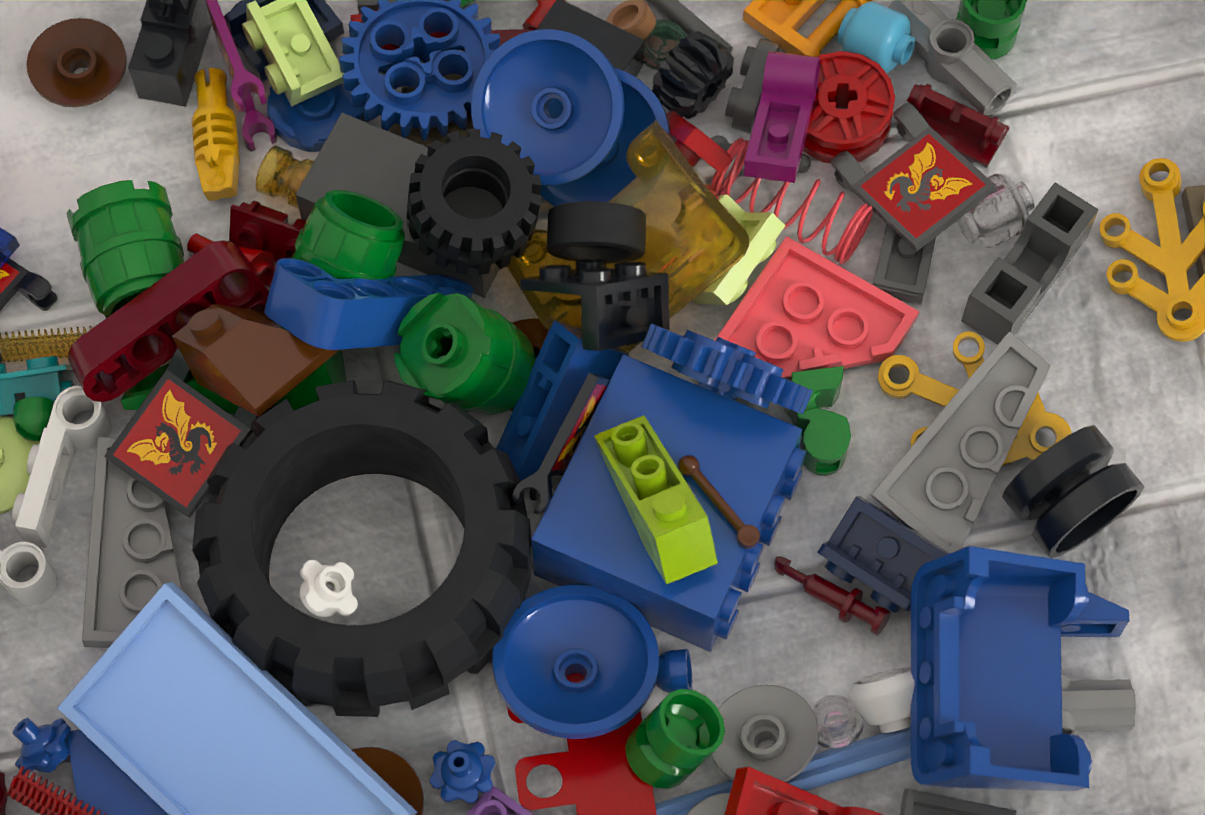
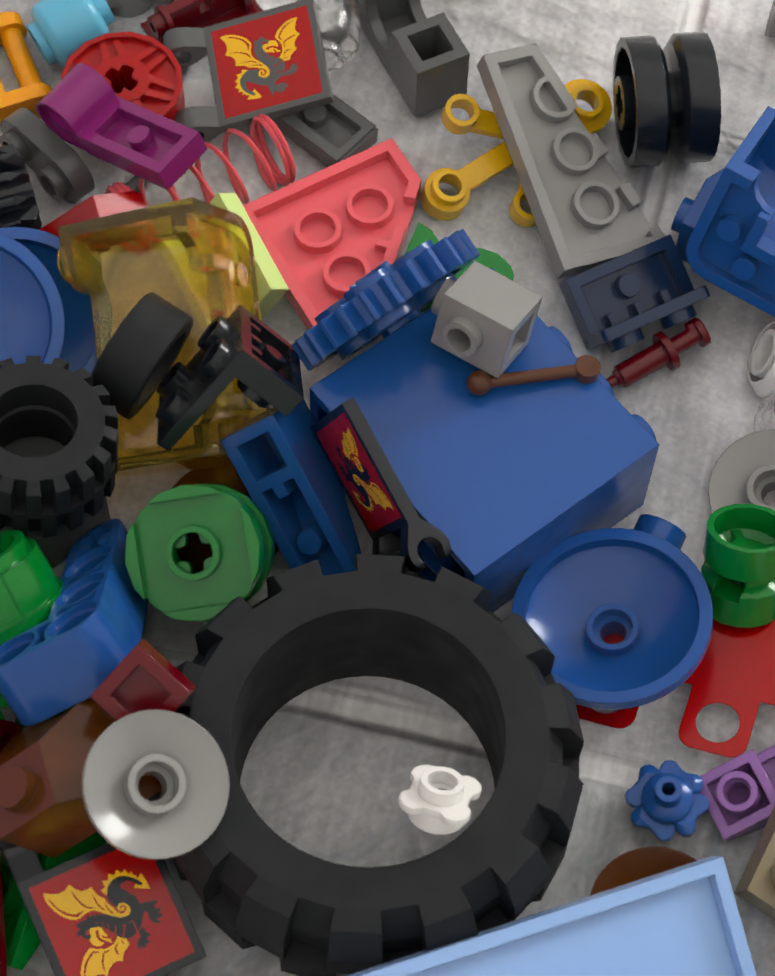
camera: 65 degrees left, 5 degrees down
(214, 400) = (189, 772): none -> light grey dish
(309, 363) = (143, 683): none -> dark red tile
(658, 500) = (508, 422): lime slope -> none
(734, 439) = (484, 318): none -> light grey brick

